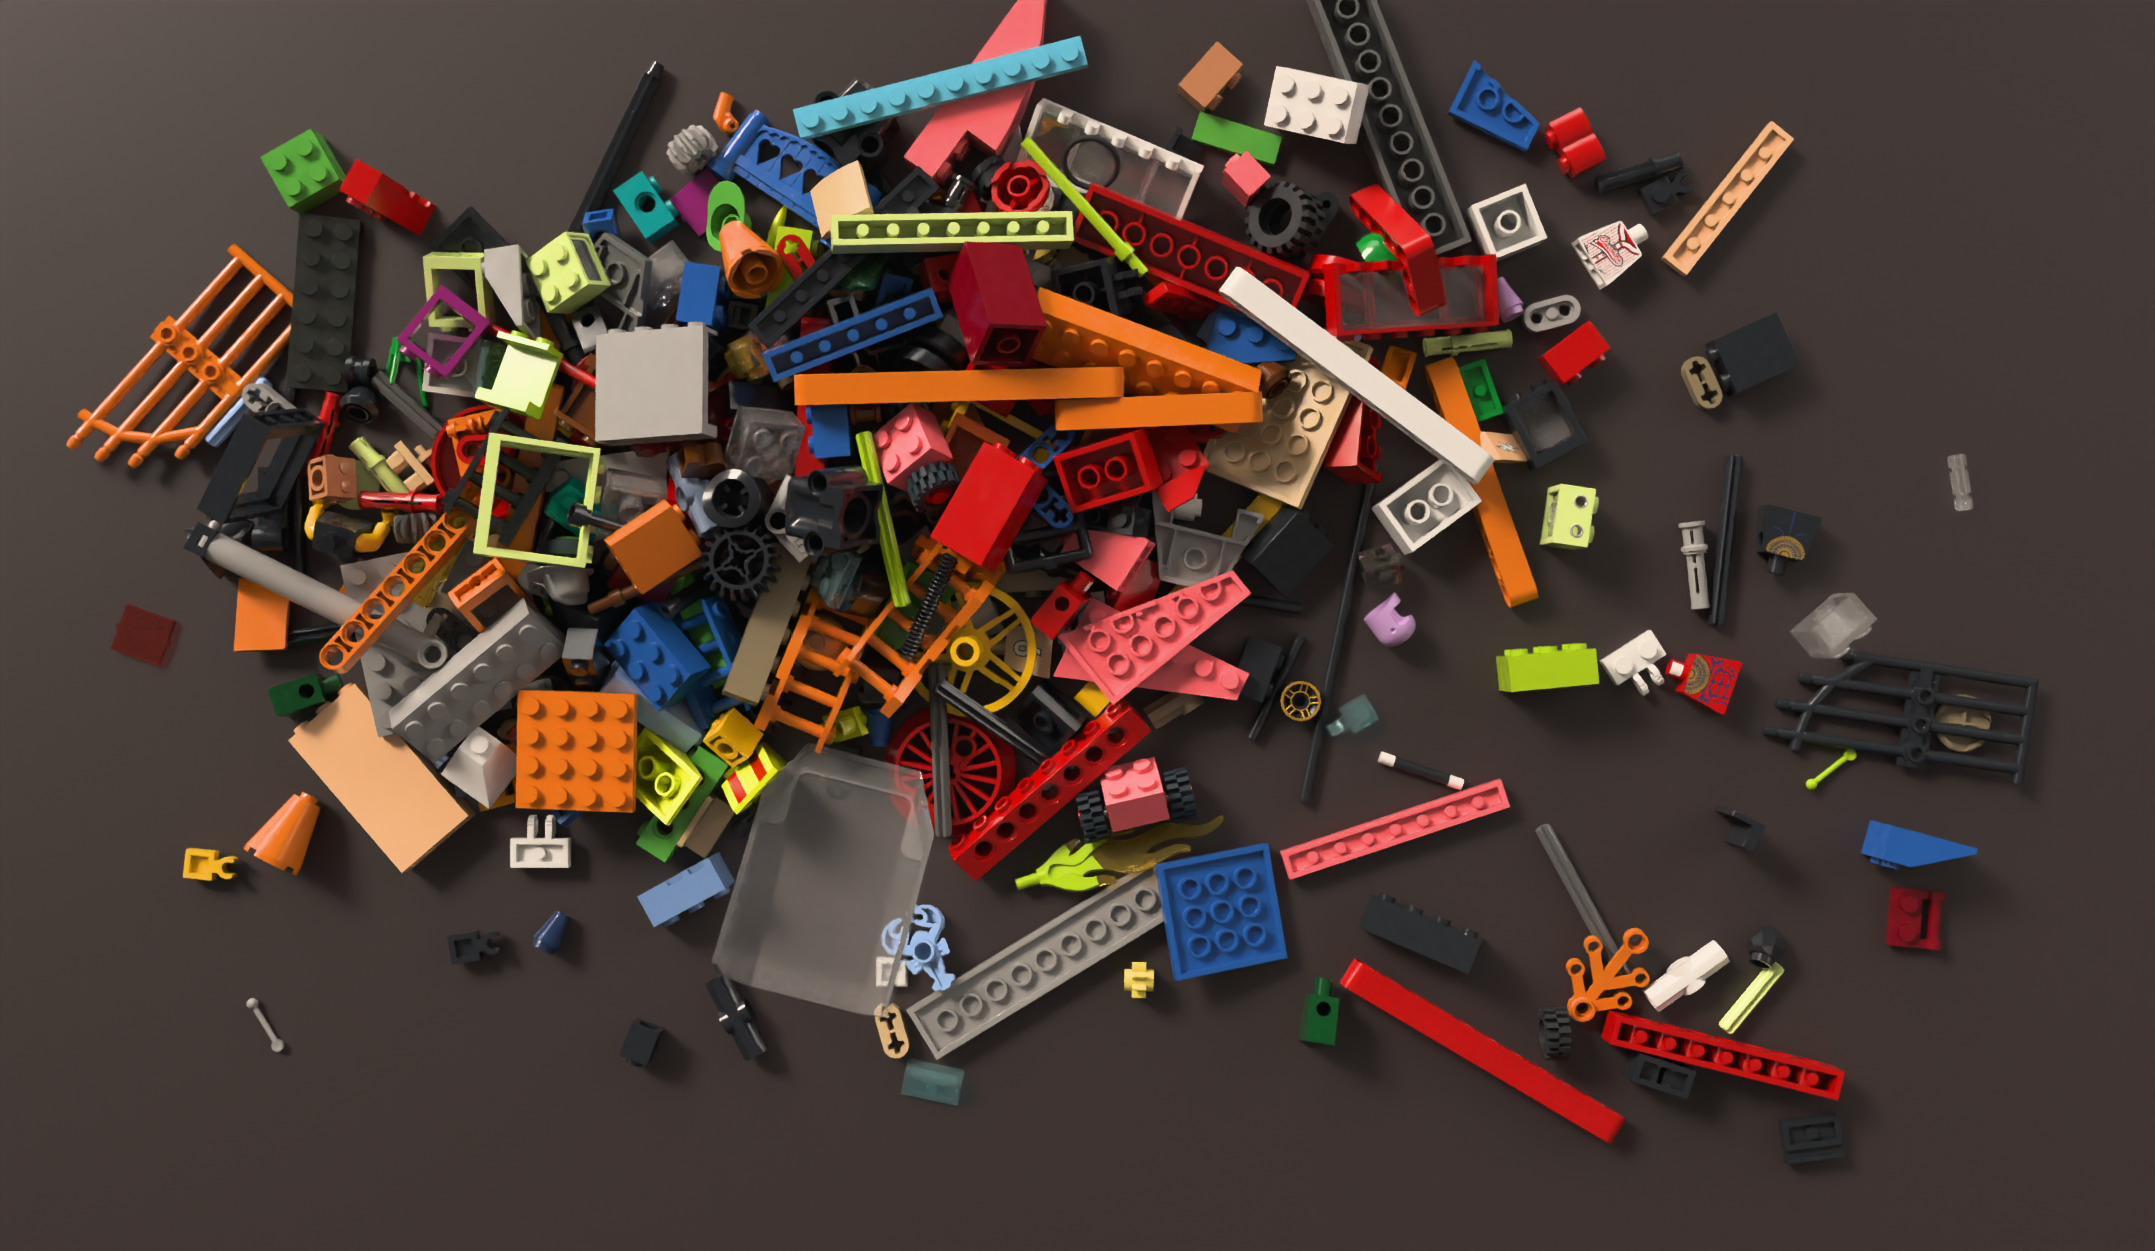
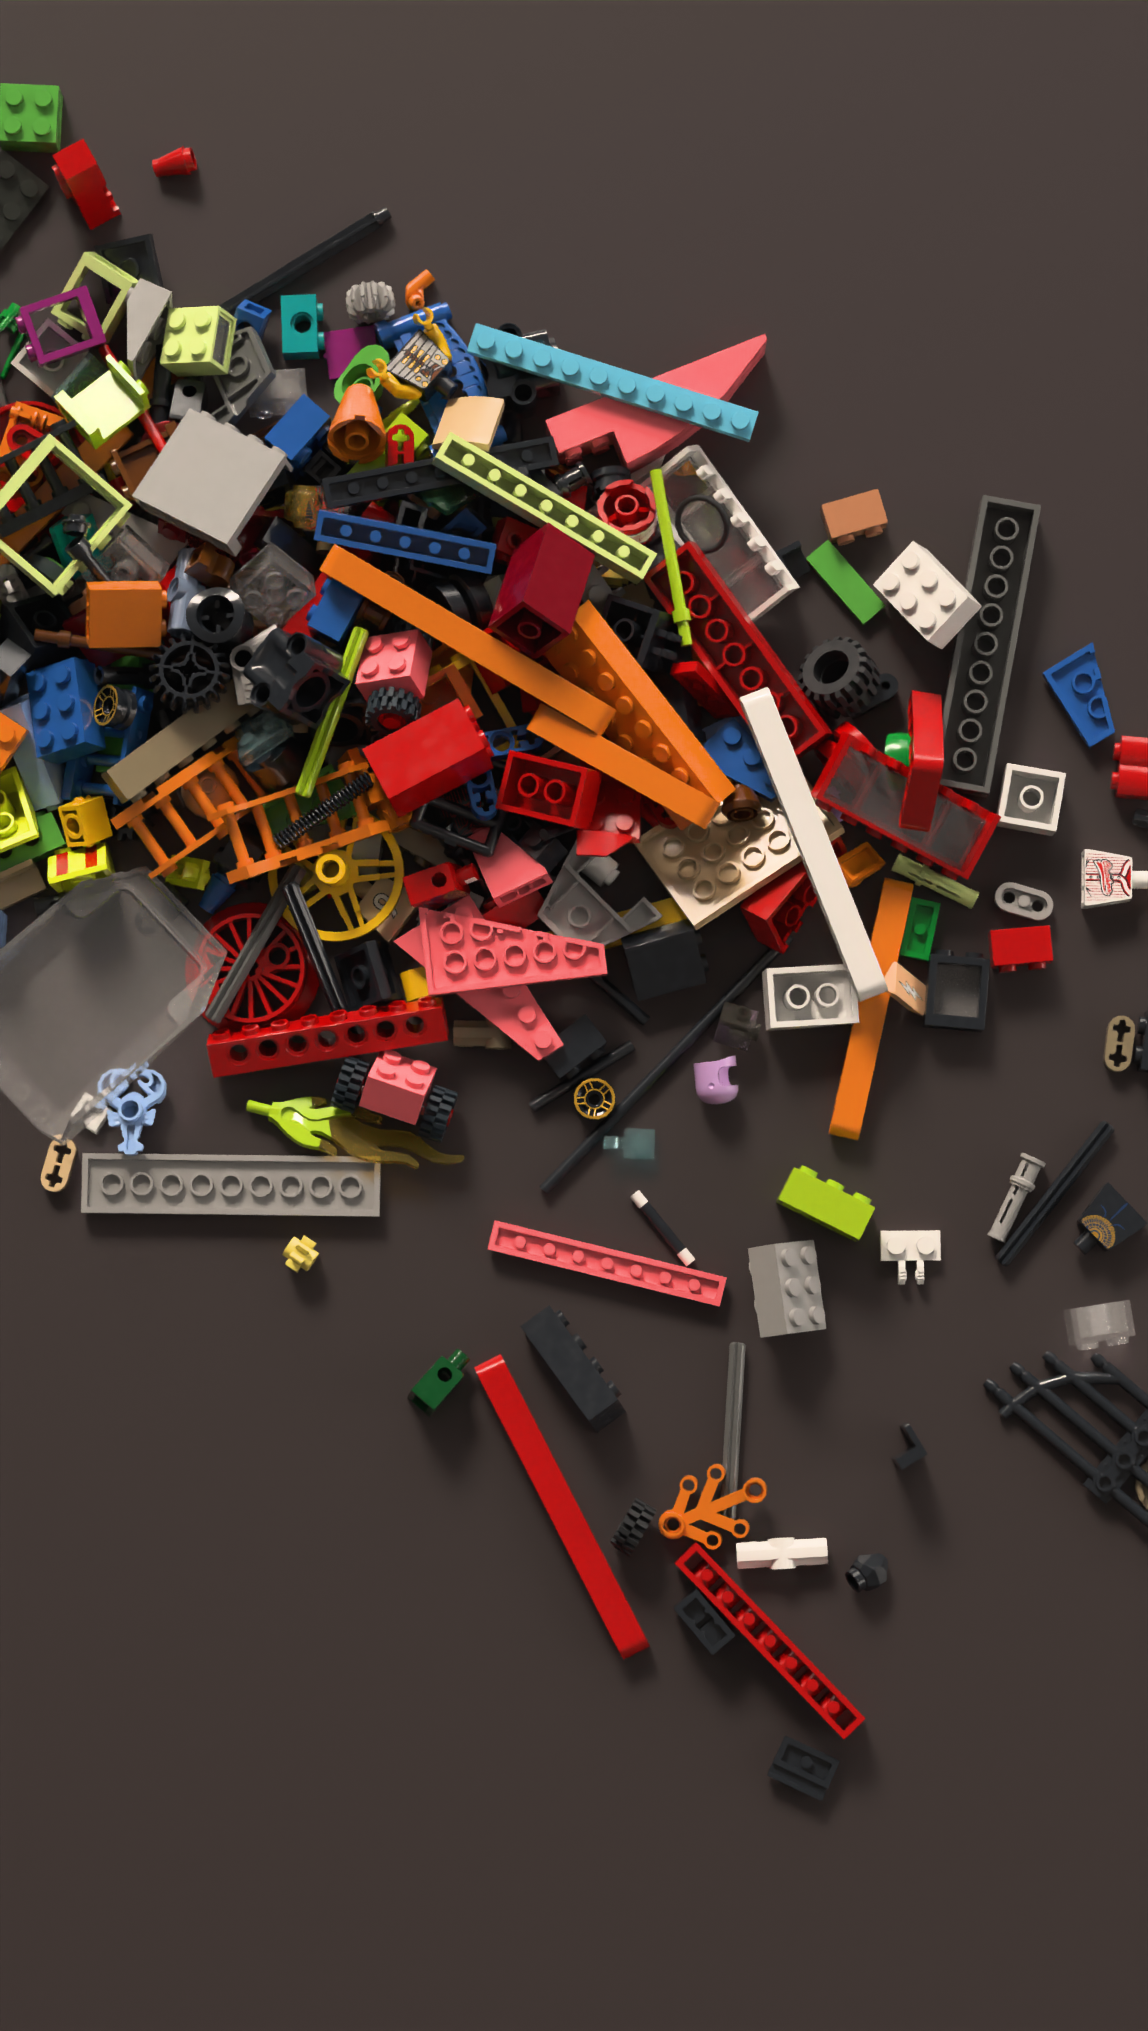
camera: 30 degrees right, 5 degrees down
(454, 132) = (177, 162): none -> red cone
(563, 497) = (75, 525): none -> black plate
(563, 582) = (28, 597): light grey piece -> none
(697, 629) = (115, 707): none -> black wheel
(768, 176) = (419, 366): none -> torso
(932, 1082) = (64, 1232): clear light blue slope -> none
(1220, 911) = (410, 1238): blue plate -> none
(1244, 178) = (828, 618): coral brick -> none
(1509, 303) = (991, 868): lavender cone -> none
(1559, 759) = (786, 1288): none -> light grey piece
(1569, 517) = (926, 1083): yellowish green piece -> none
(1705, 680) = (960, 1303): torso -> none
(1750, 998) = (828, 1610): yellowish green axle -> none
(1848, 754) = (1047, 1451): lime hinge -> none
(1898, 846) = (1040, 1553): blue slope -> none
(1906, 914) = (1010, 1624): dark red plate -> none

